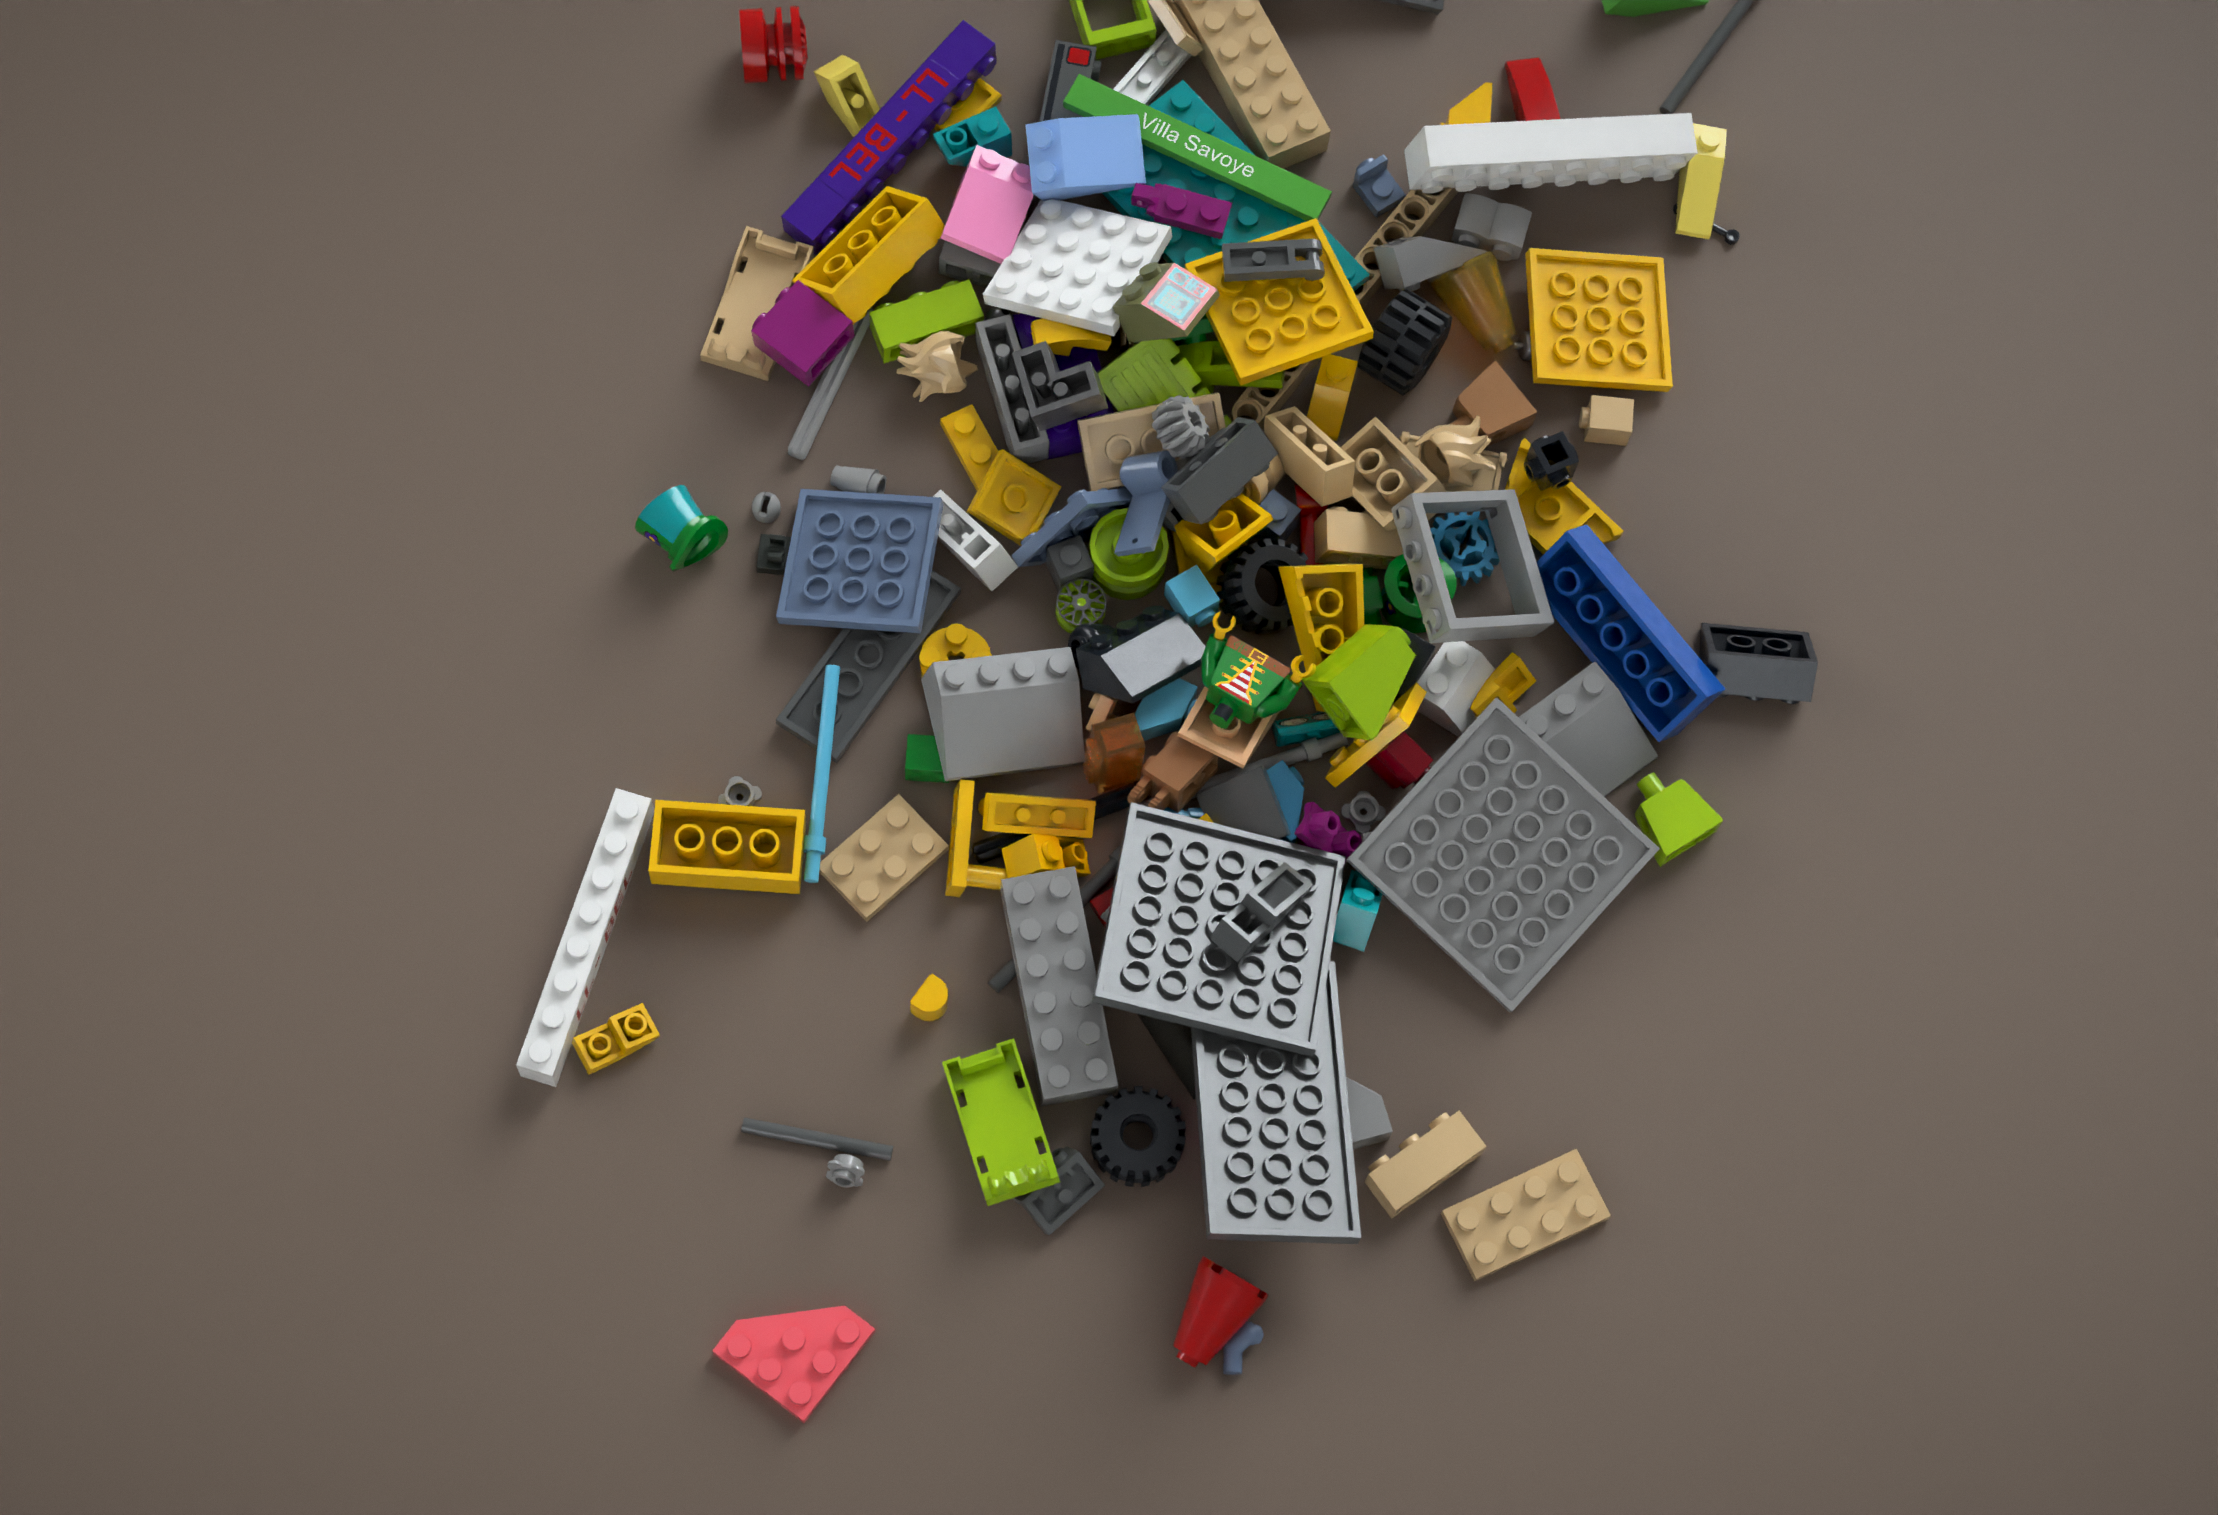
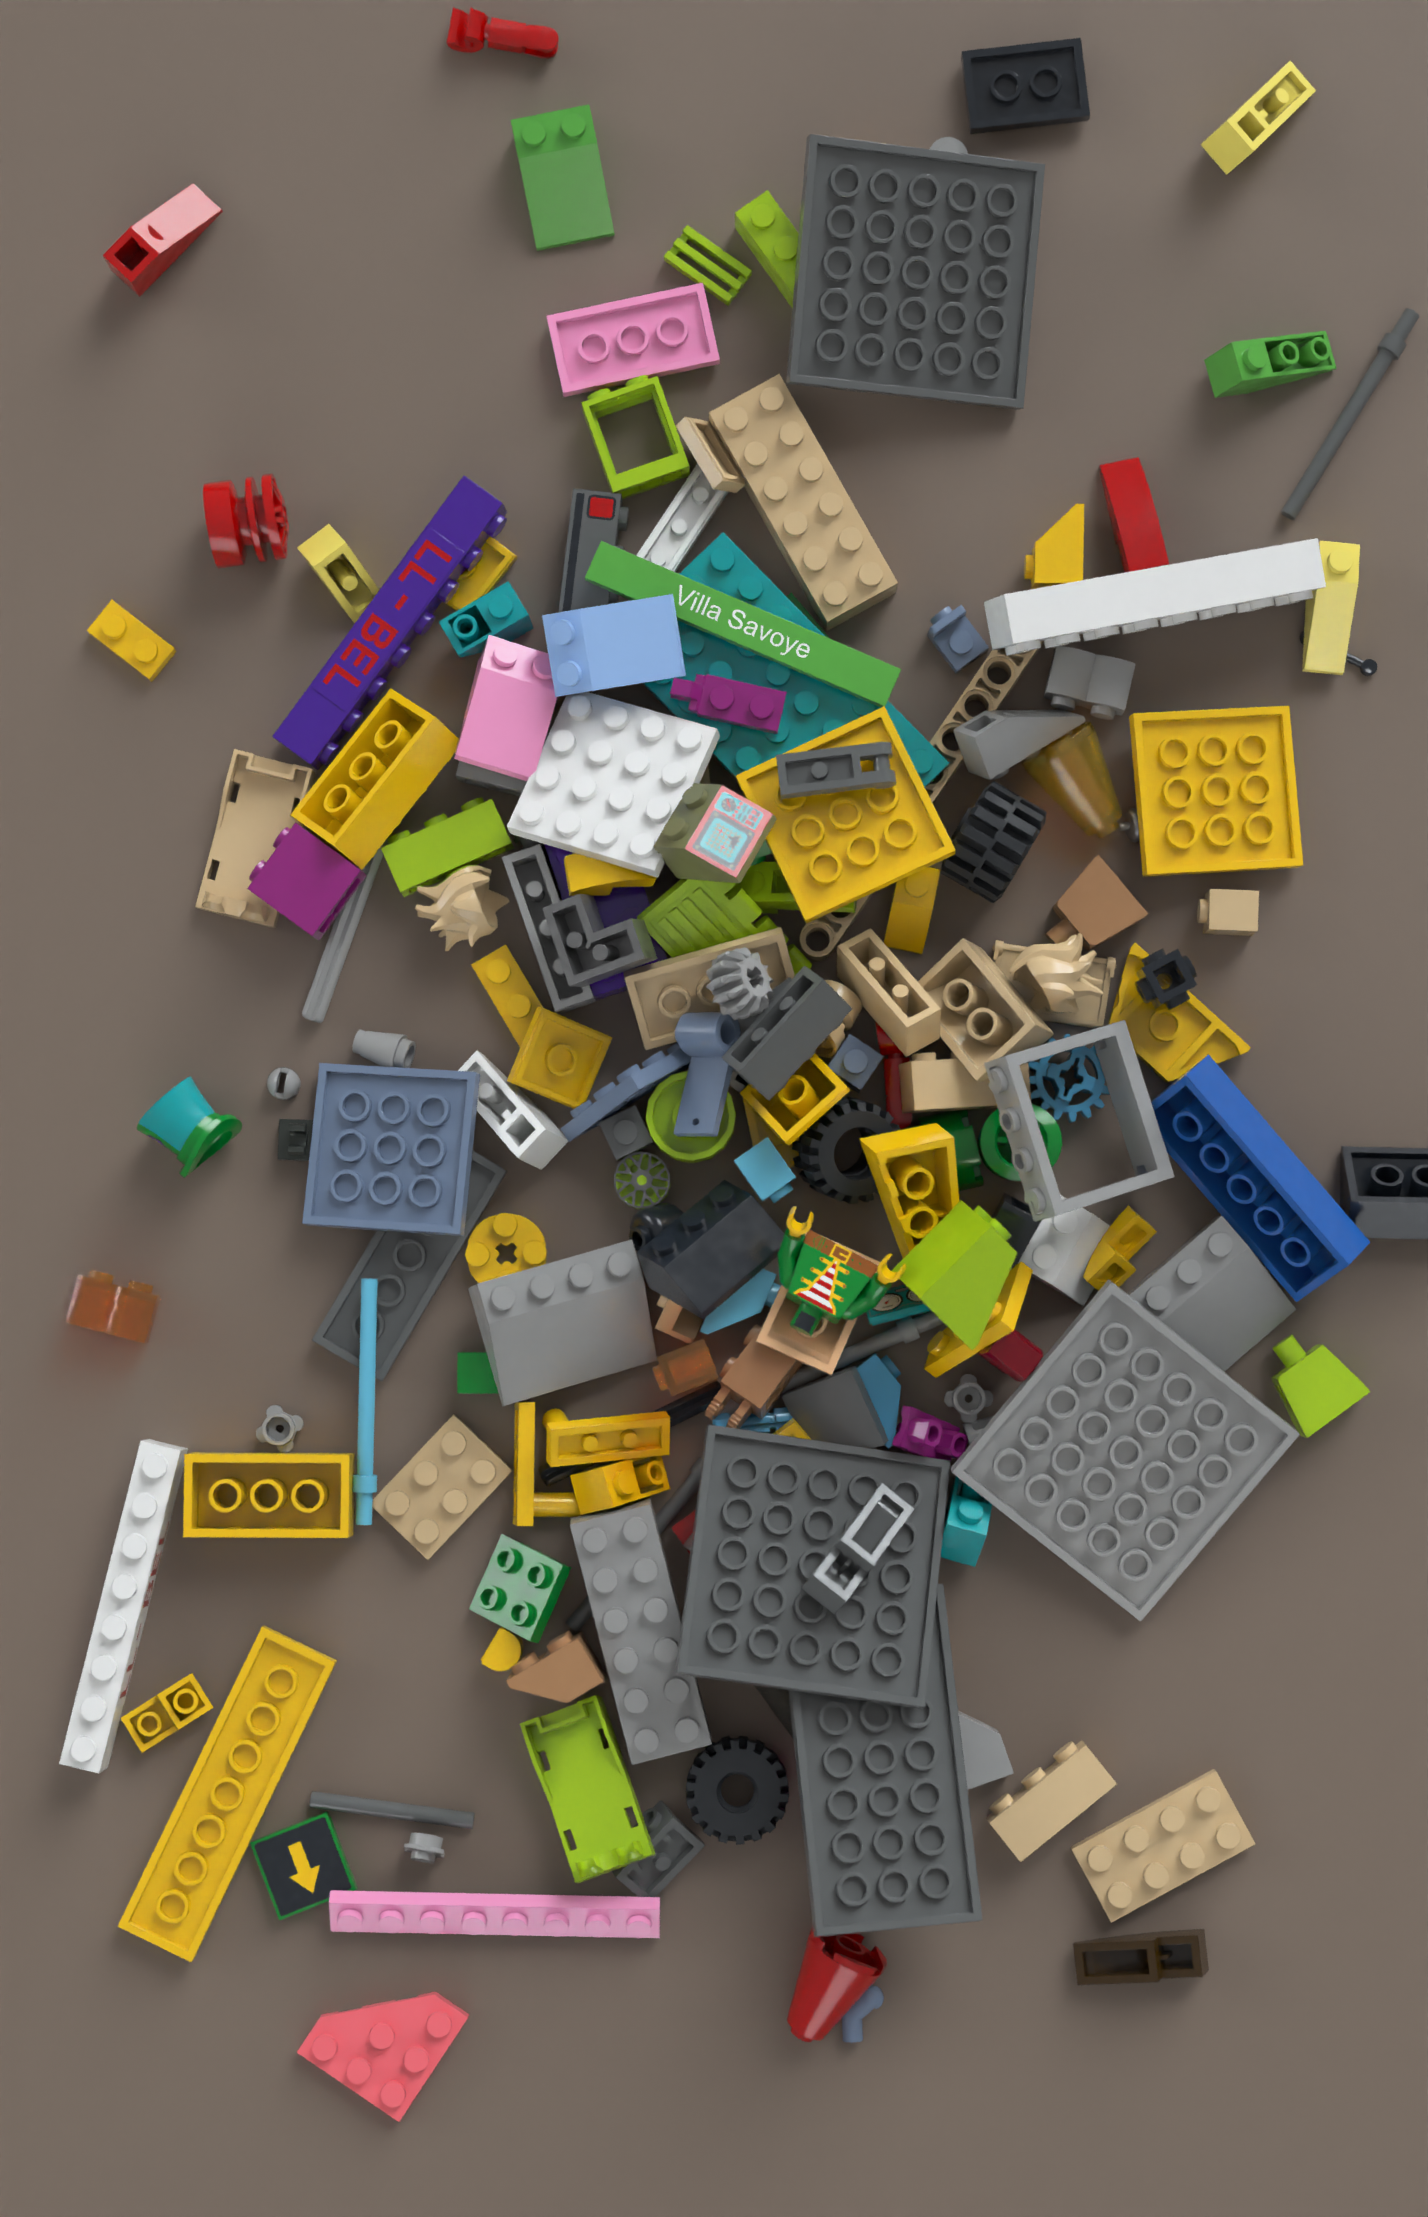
camera: 10 degrees right, 15 degrees up
(598, 681) = (112, 1307): none -> clear orange brick
(662, 139) = (131, 640): none -> yellow plate
(665, 1113) = (227, 1793): none -> yellow plate
(731, 1183) = (303, 1865): none -> black tile
(906, 1235) = (494, 1914): none -> bright pink plate
(949, 944) = (520, 1588): none -> plate
(981, 1015) = (561, 1672): none -> medium nougat slope
(1503, 1311) = (1141, 1957): none -> dark brown slope

